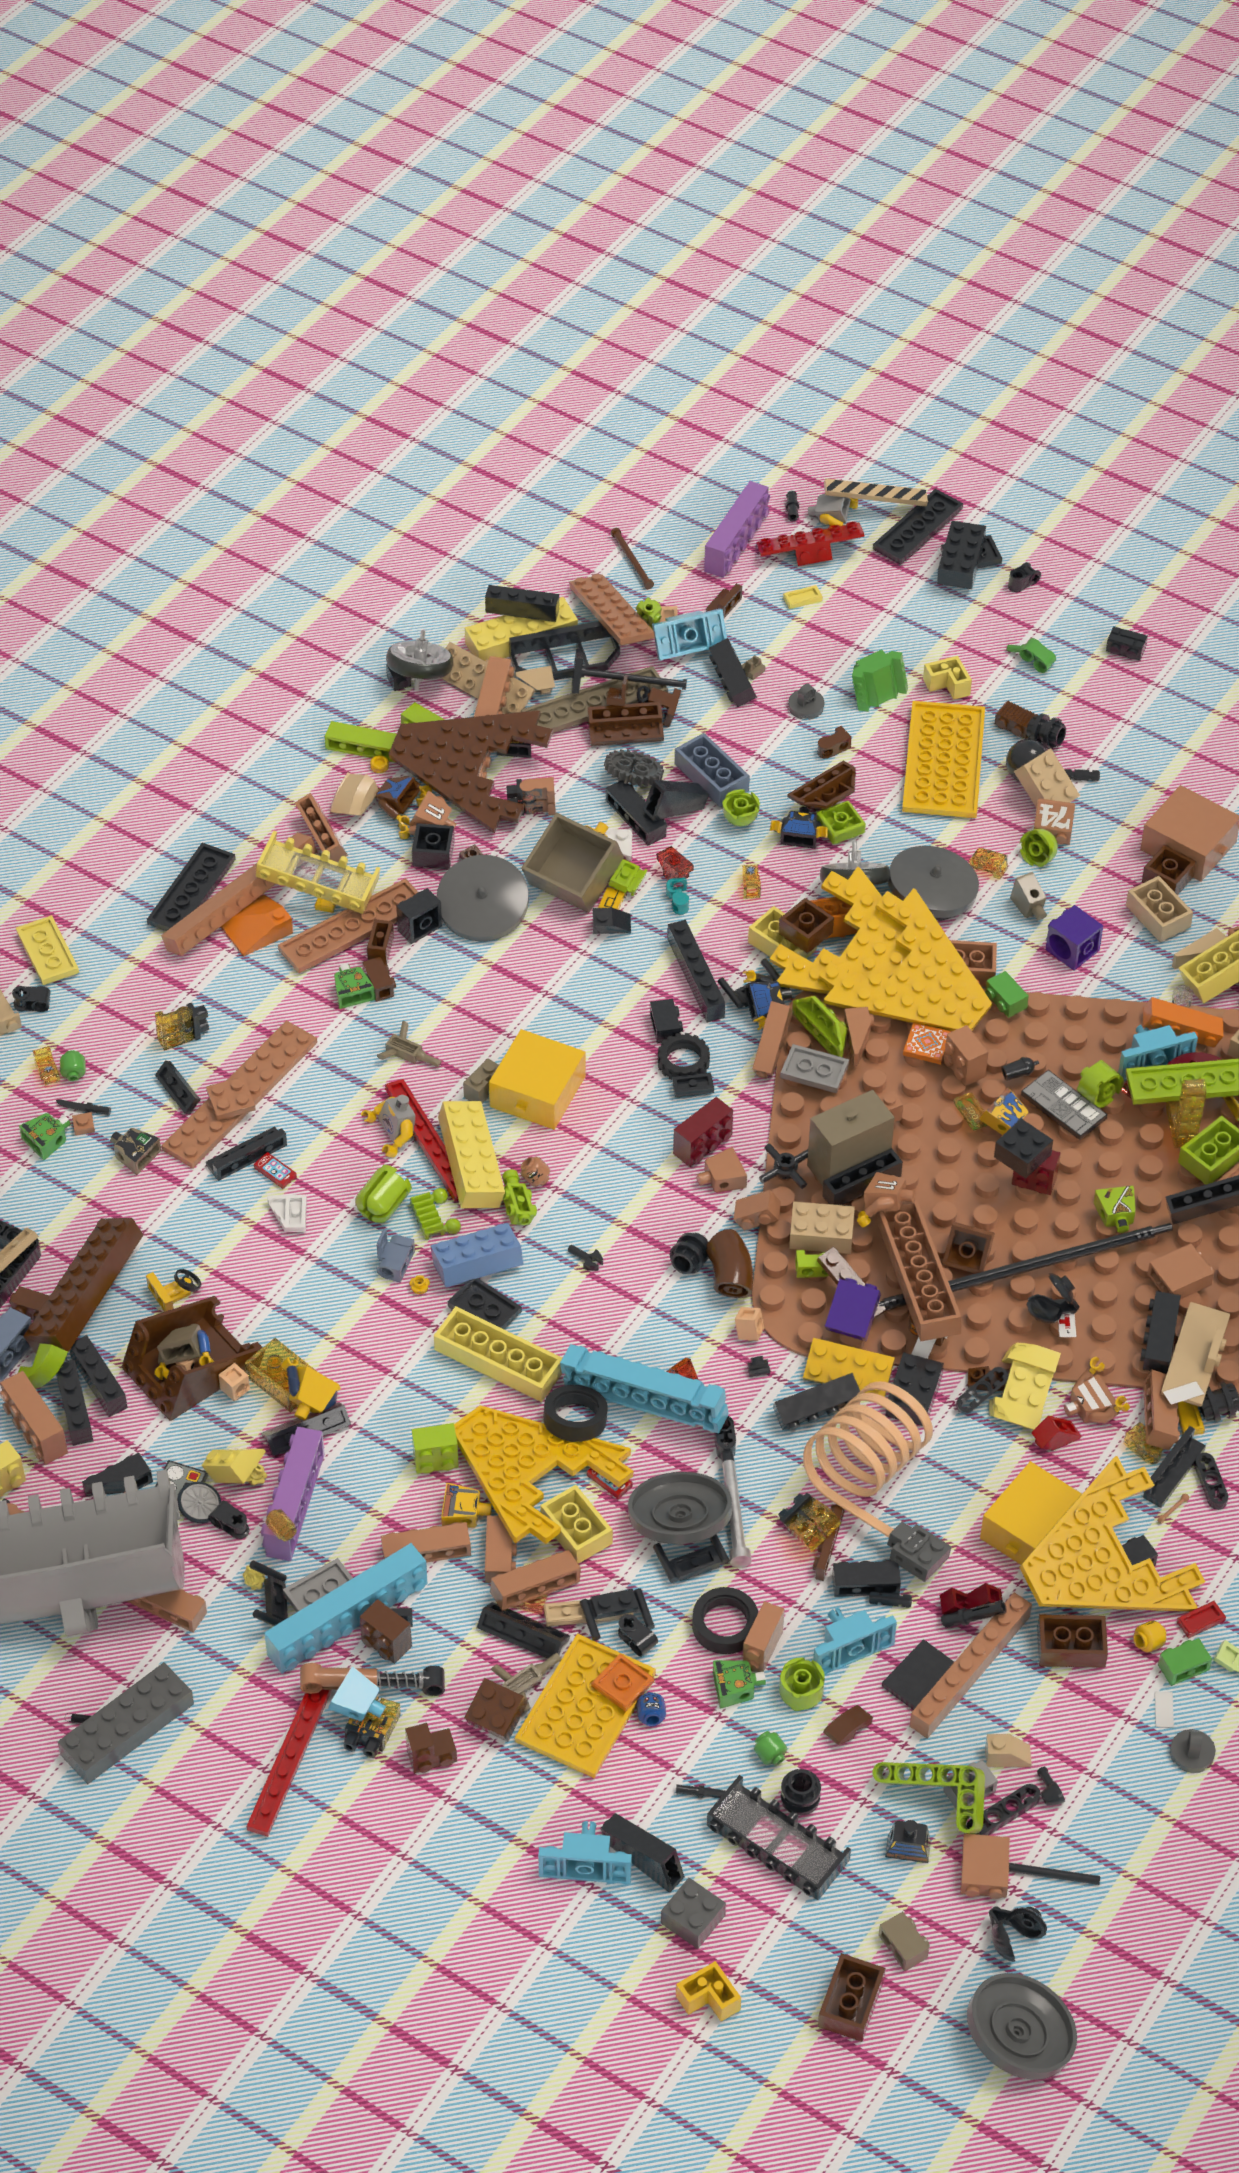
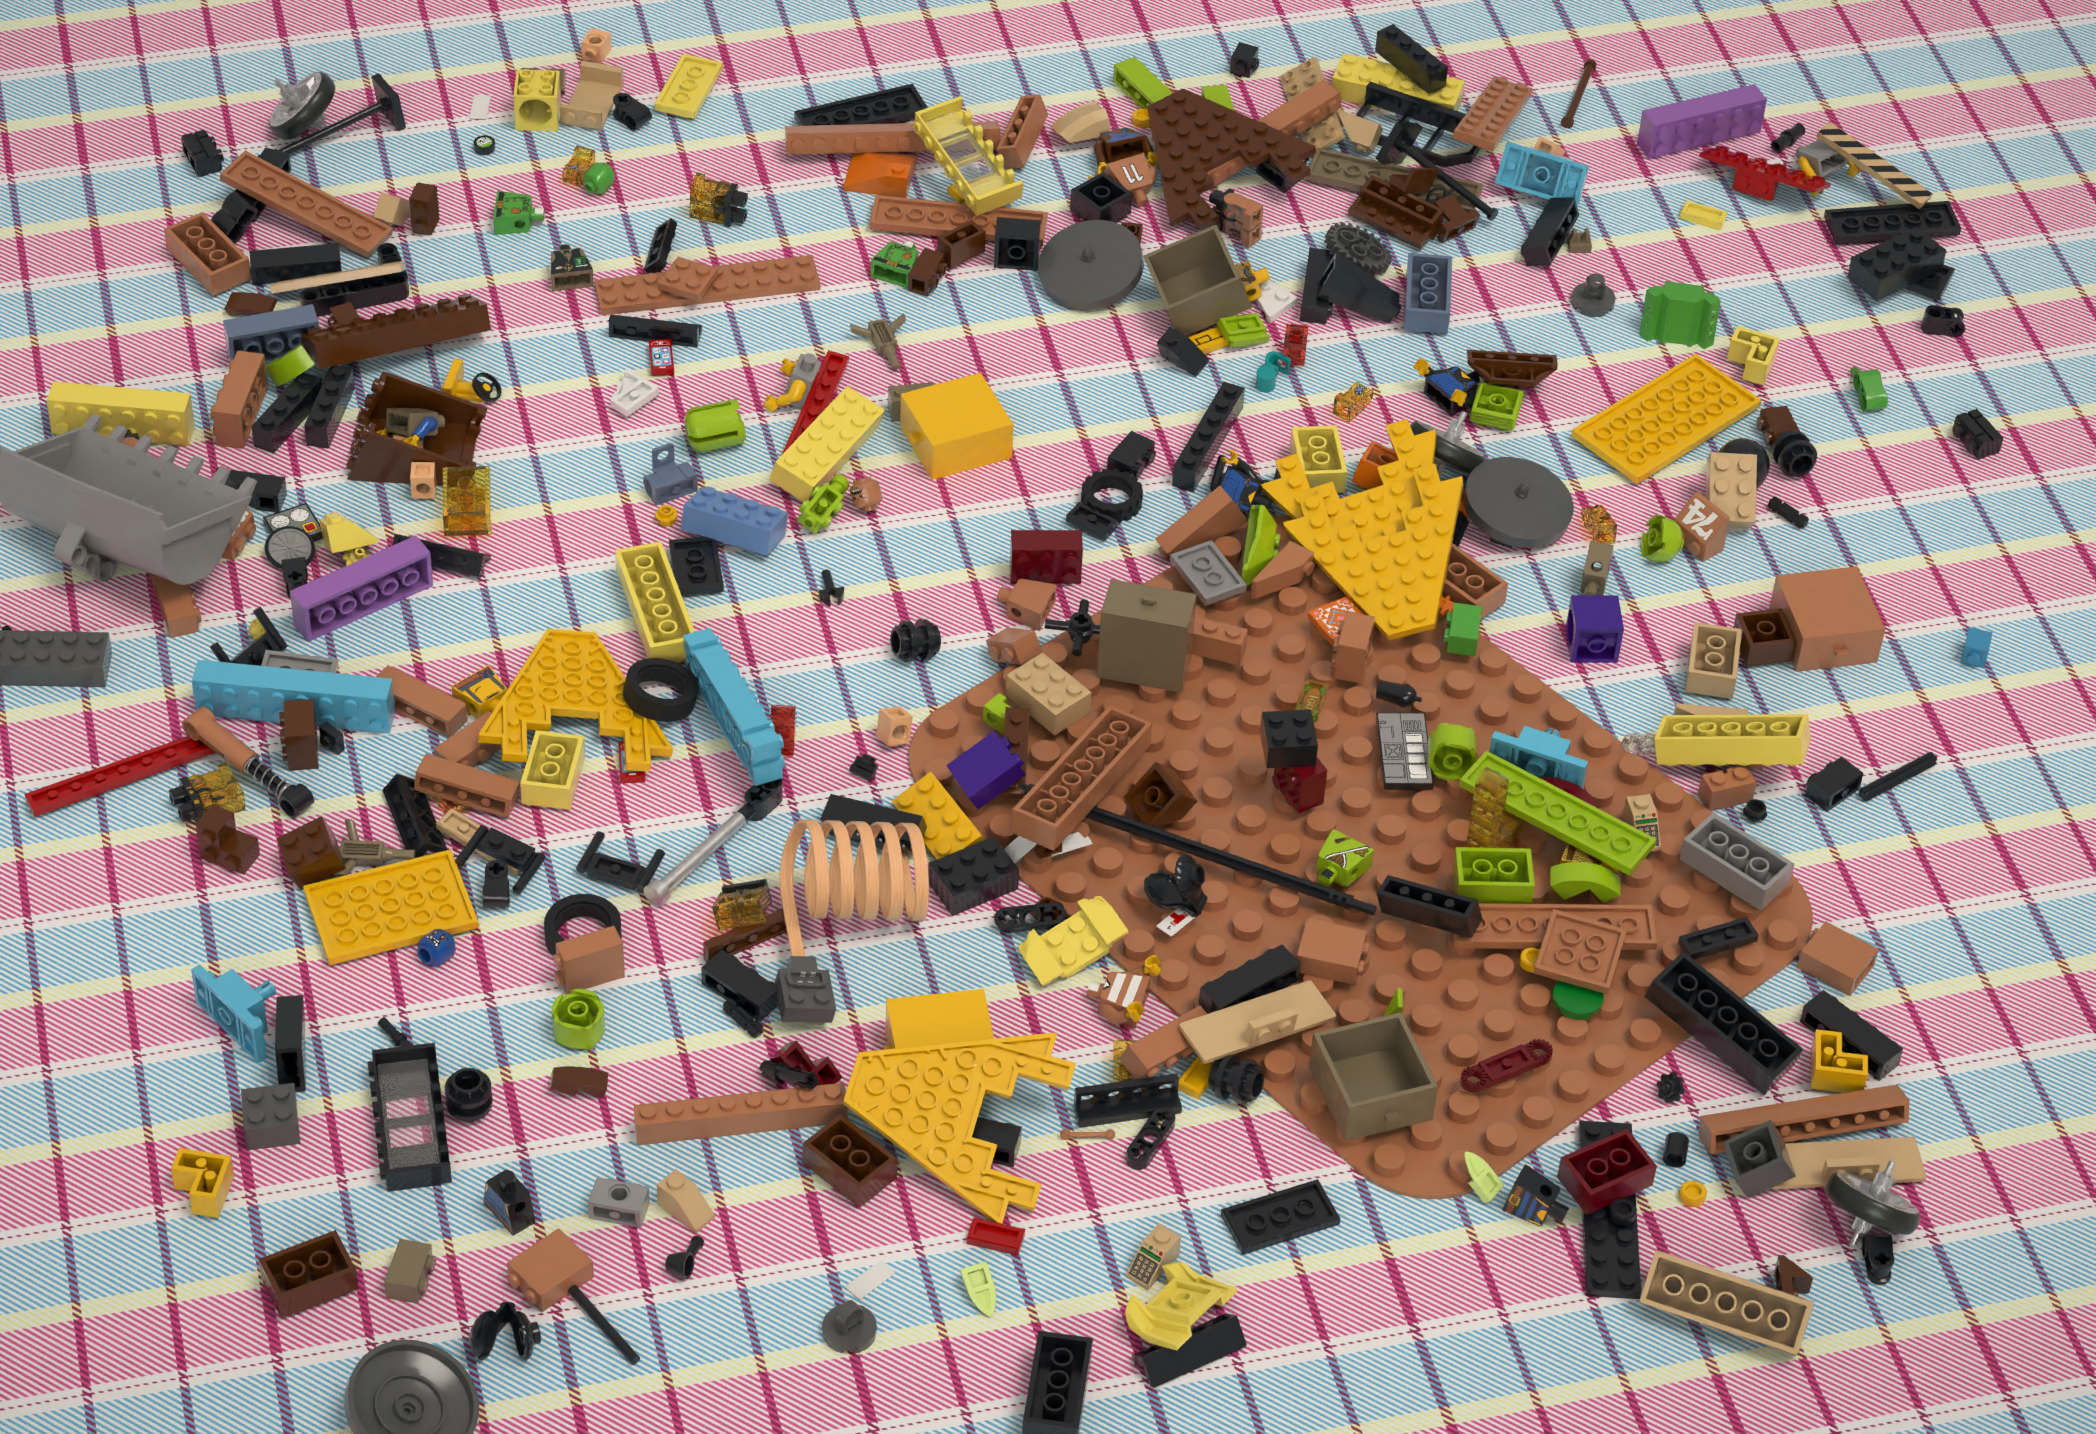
camera: 40 degrees right, 5 degrees down
(83, 1123) = (556, 227): nougat plate -> none
(89, 1107) = (574, 218): black piece -> none
(281, 1524) = (304, 590): clear yellow brick -> none
(309, 1389) = (466, 522): yellow torso -> none
(357, 1697) = (208, 757): torso -> none
(419, 659) = (1265, 51): wheel -> none
(428, 1216) = (741, 468): lime gear -> none
(435, 1448) = (511, 632): lime brick -> none
(622, 1682) = (436, 909): orange tile -> none
(649, 611) = (1519, 129): lime brick -> none
(680, 1507) = (649, 816): dark grey container -> none
(726, 600) = (1623, 176): reddish brown panel -> none
(730, 1264) = (936, 669): reddish brown brick -> none
(735, 1681) = (528, 979): bright green torso -> none
(740, 807) = (1412, 336): lime cylinder -> none
(770, 1748) = (491, 1048): bright green head -> none
(806, 925) = (1336, 452): reddish brown brick -> none
(834, 744) = (1574, 343): reddish brown leg -> none
(853, 1639) = (657, 1017): medium azure brick -> none
(854, 1181) = (1132, 679): black brick -> none
(884, 1194) = (1122, 696): nougat torso -> none
(917, 1674) = (690, 1084): black tile -> none
(939, 1779) = (595, 1194): lime beam -> none
(1004, 1112) = (1333, 718): torso -> none
(1005, 1815) = (623, 1241): black beam -> none
(1055, 1433) = (1055, 998): red slope -> none
(1149, 1636) = (927, 1211): yellow head -> none
(1183, 1020) = (1604, 758): orange brick -> none
(1183, 1393) = (1198, 1039): white sticker -> none
(1184, 1661) = (931, 1254): bright green brick -> none

